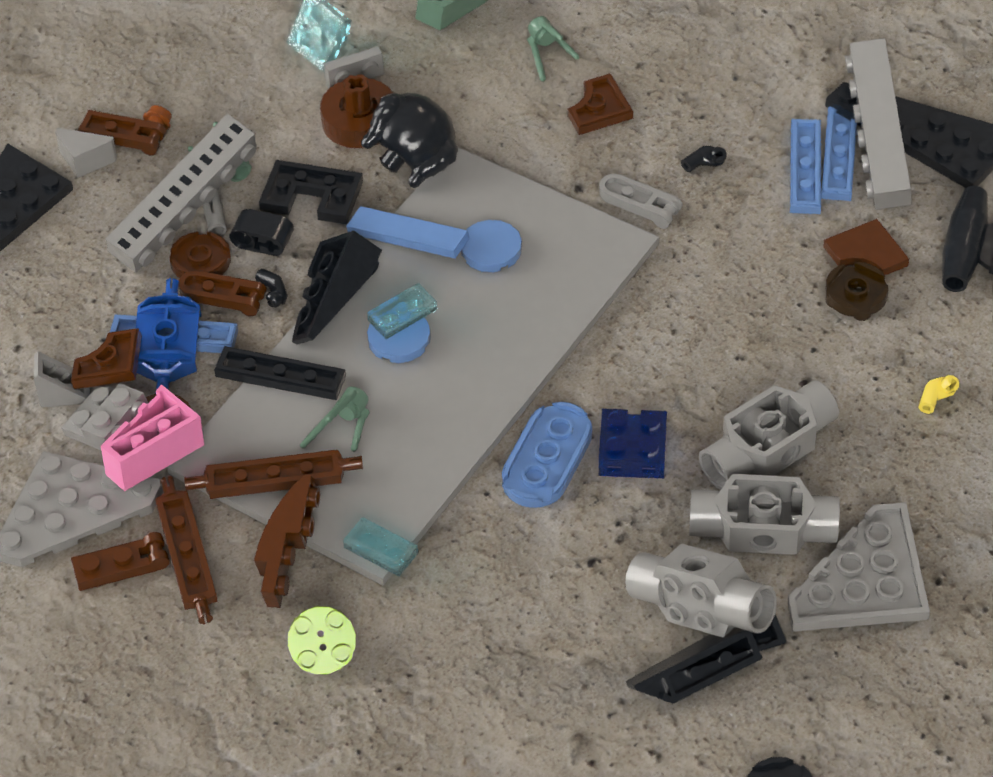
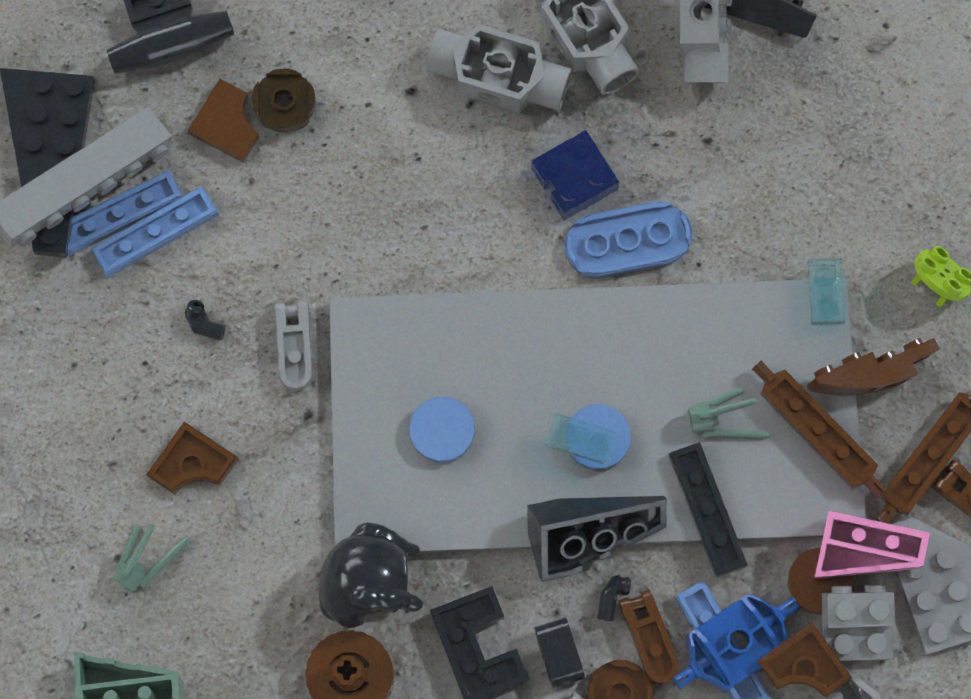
camera: 125 degrees left, 25 degrees up
(408, 232) = (478, 511): medium blue tile -> none

